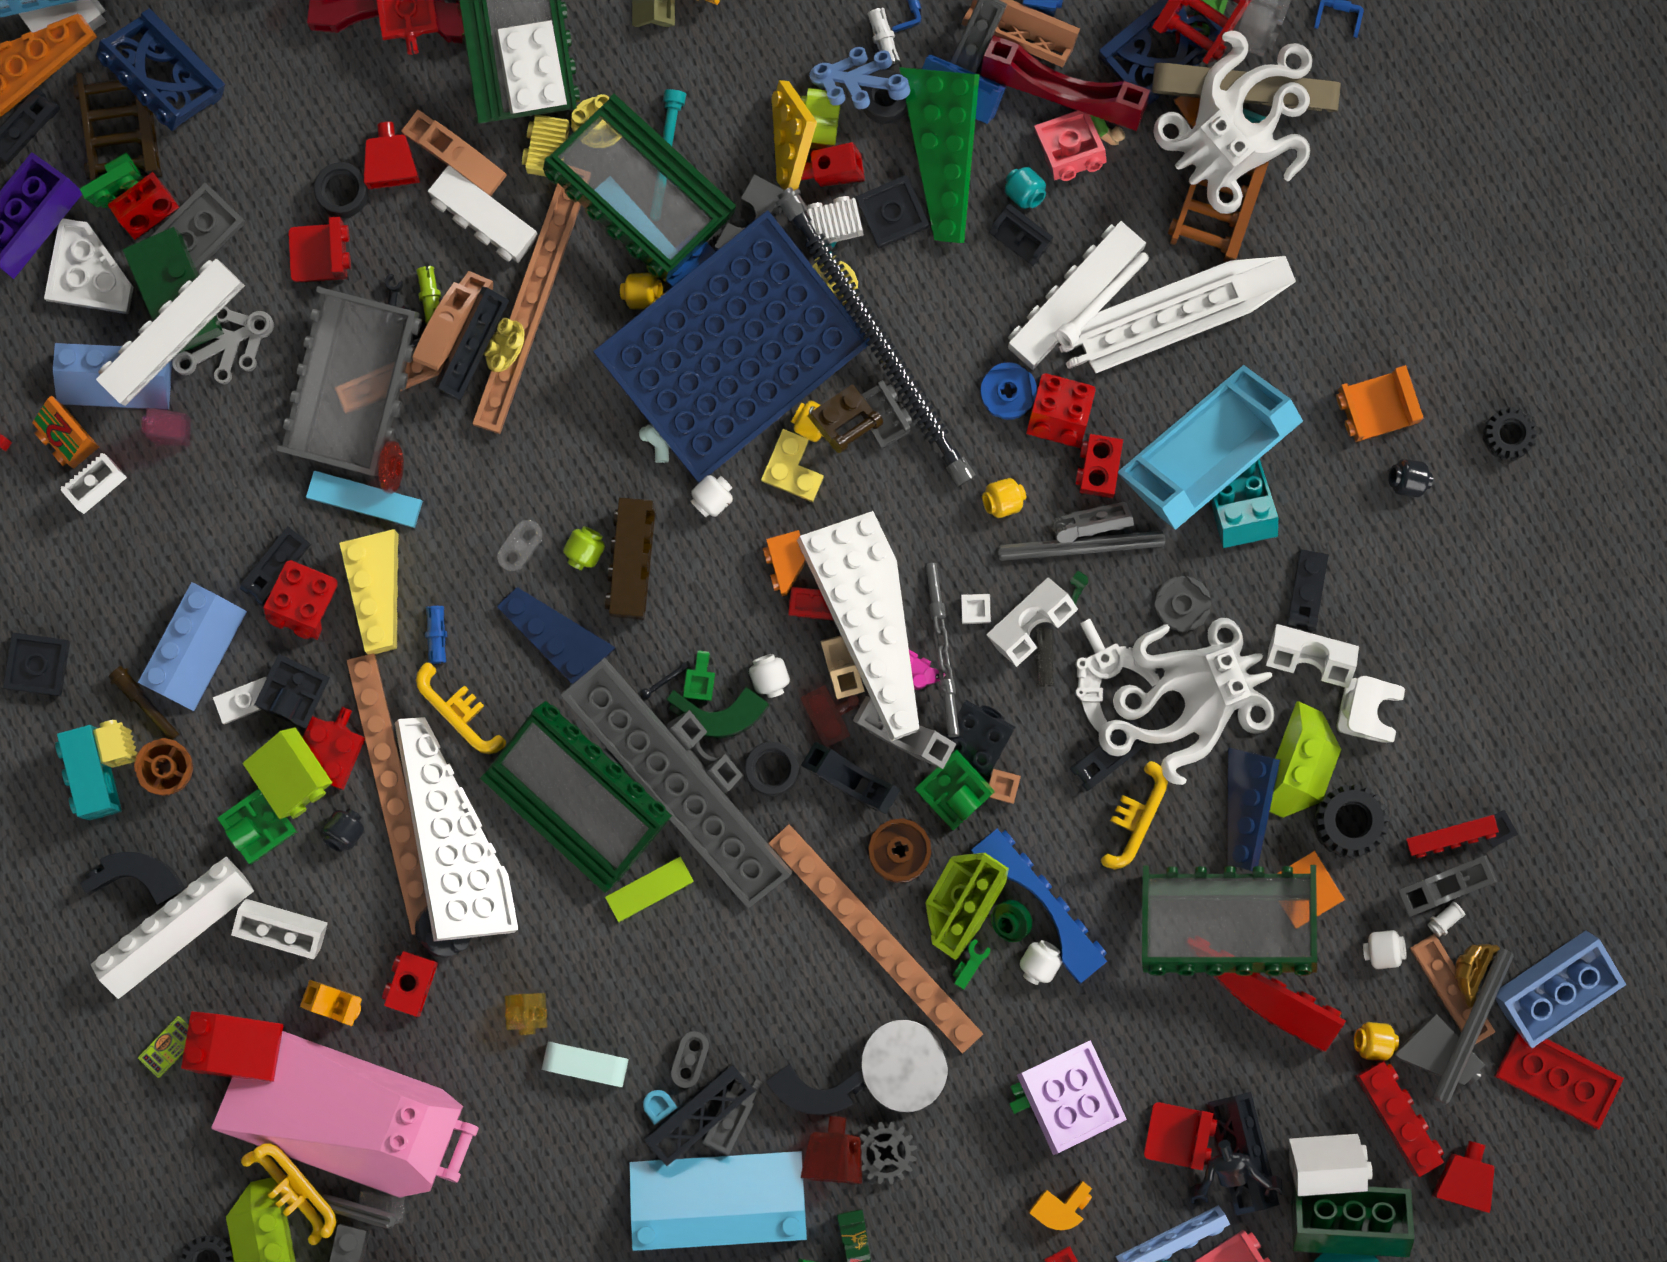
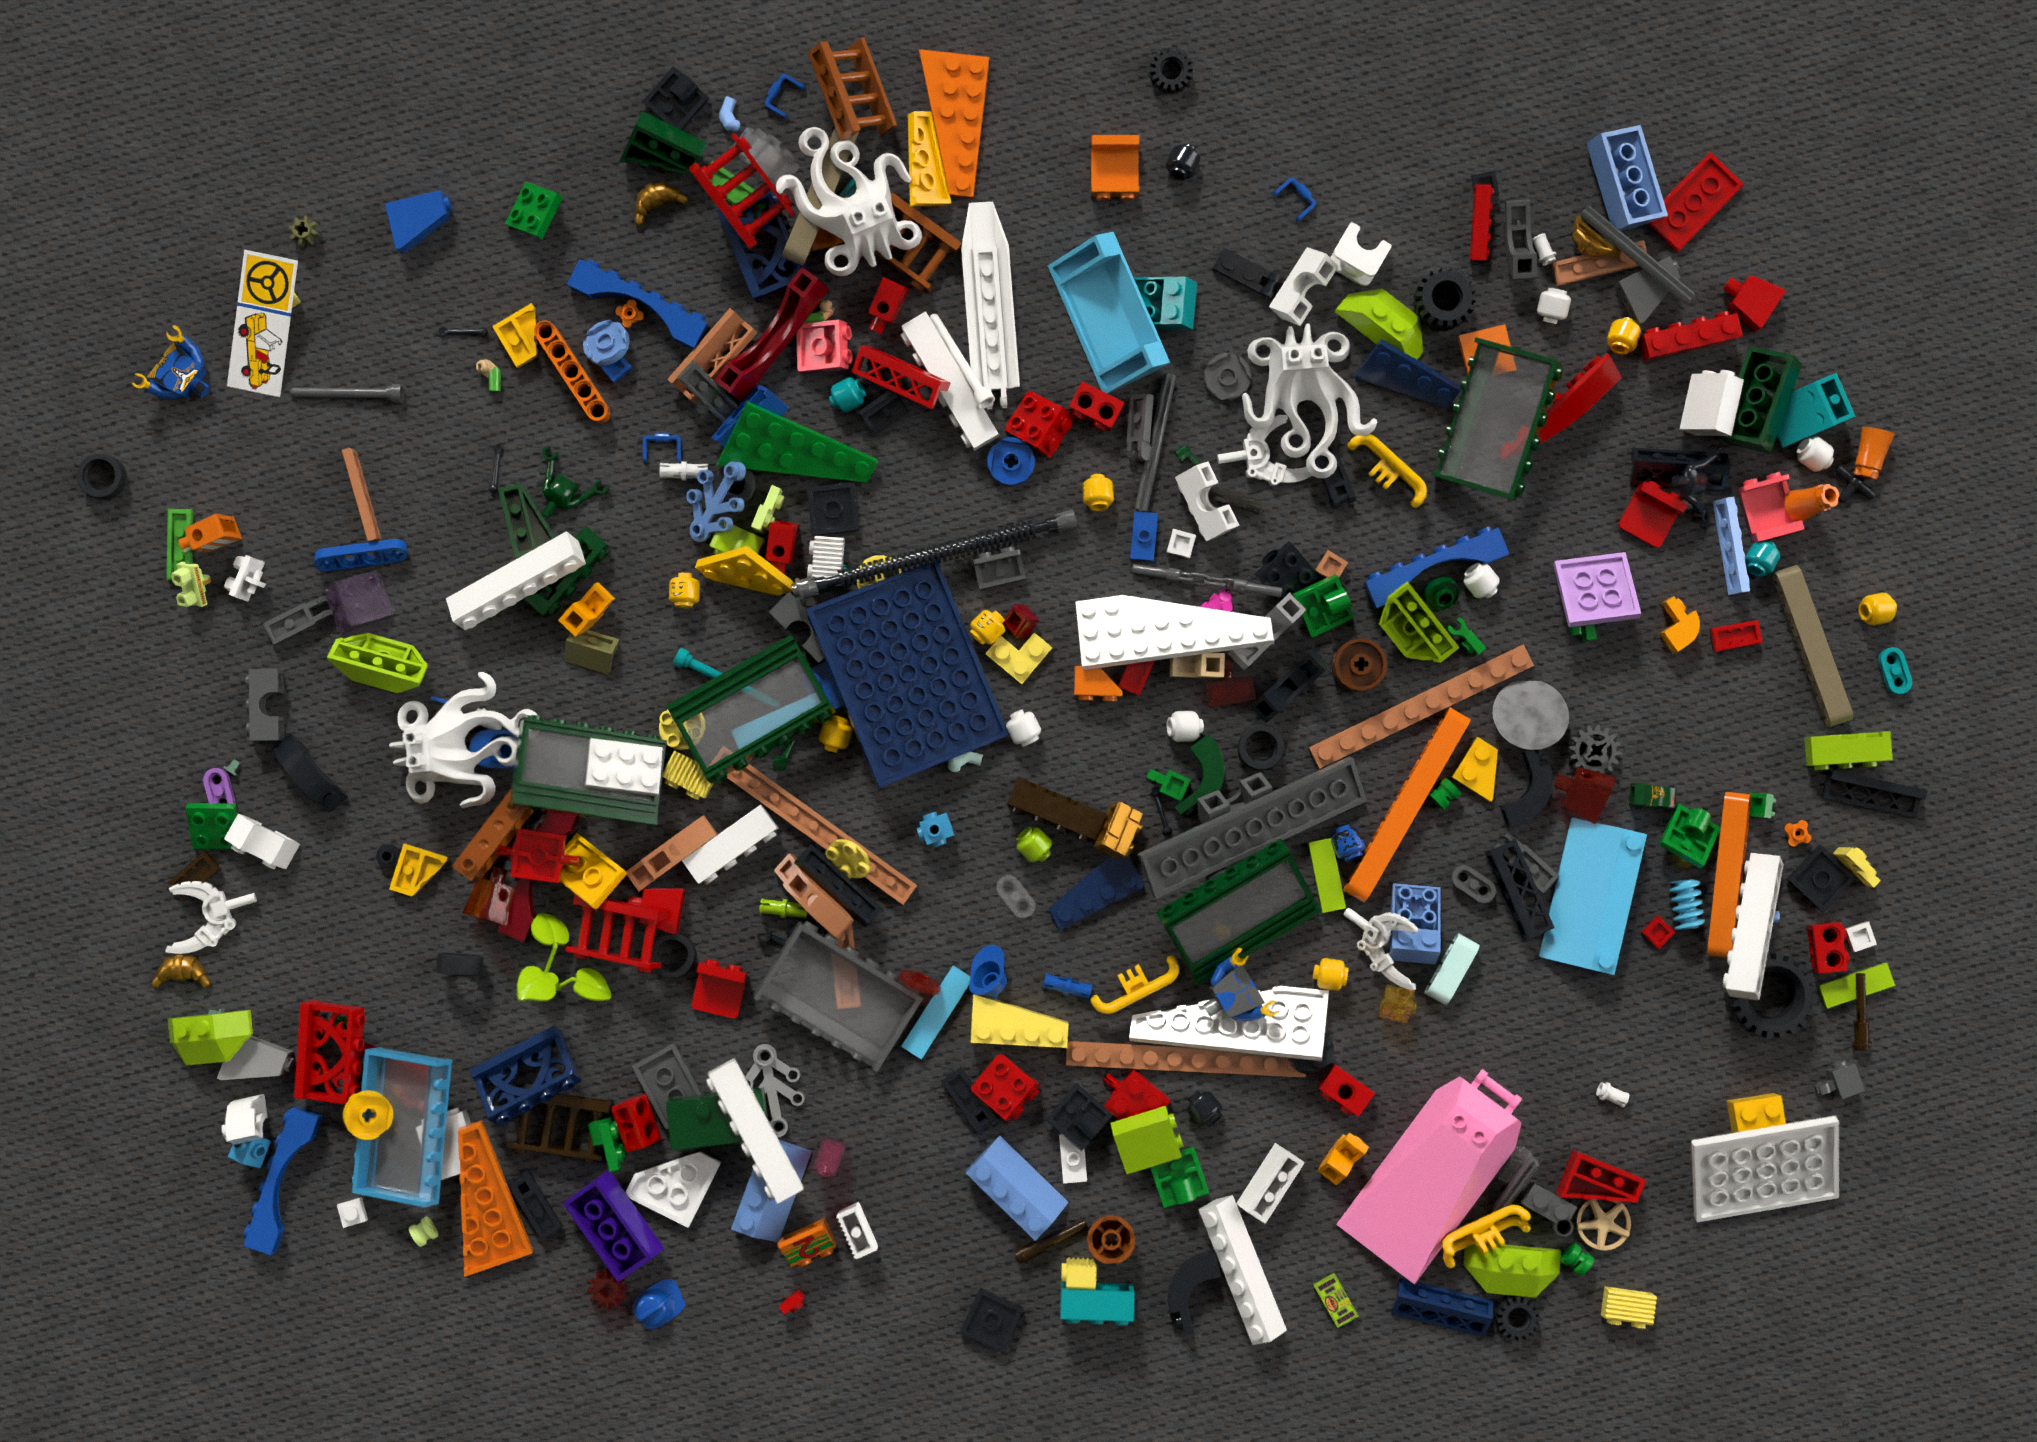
camera: 70 degrees left, 5 degrees up
(199, 1172) = (1444, 1304): none -> dark blue fence
(232, 1046) = (1354, 1248): red slope -> none
(259, 46) = (542, 986): none -> lime plant
(373, 127) = (631, 913): none -> red fence
(405, 75) = (595, 874): none -> yellow tile
(423, 540) = (988, 972): none -> blue piece
(482, 821) = (1236, 993): none -> torso
(537, 926) = (1331, 974): none -> yellow head
(570, 442) = (944, 825): none -> dark azure brick
(591, 243) = (780, 763): none -> dark green hand
(595, 965) = (1376, 937): none -> white bar
(624, 1005) = (1422, 908): none -> medium blue slope
(627, 636) = (1118, 831): none -> pearl gold brick
(658, 1105) = (1501, 920): medium azure tile -> none
(692, 901) = (1348, 843): none -> blue head
(749, 77) = (684, 591): none -> yellow head
(757, 955) = (1407, 805): none -> orange beam
(782, 994) = (1444, 794): none -> green wheel
(824, 1026) = (1478, 769): none -> yellow wing
(829, 461) = (1020, 621): none -> dark red slope
(840, 411) = (989, 603): dark brown plate -> none
(863, 139) = (765, 512): none -> yellowish green plate
(971, 565) = (1143, 536): none -> blue plate
(1072, 239) = (905, 369): none -> red fence
(1152, 199) = (894, 296): none -> red torso
(1312, 193) = (925, 163): none -> yellow wing
(1353, 68) = (836, 95): none -> dark orange fence
(1396, 208) = (957, 101): none -> orange wing
(1422, 624) = (1303, 191): none -> blue piece

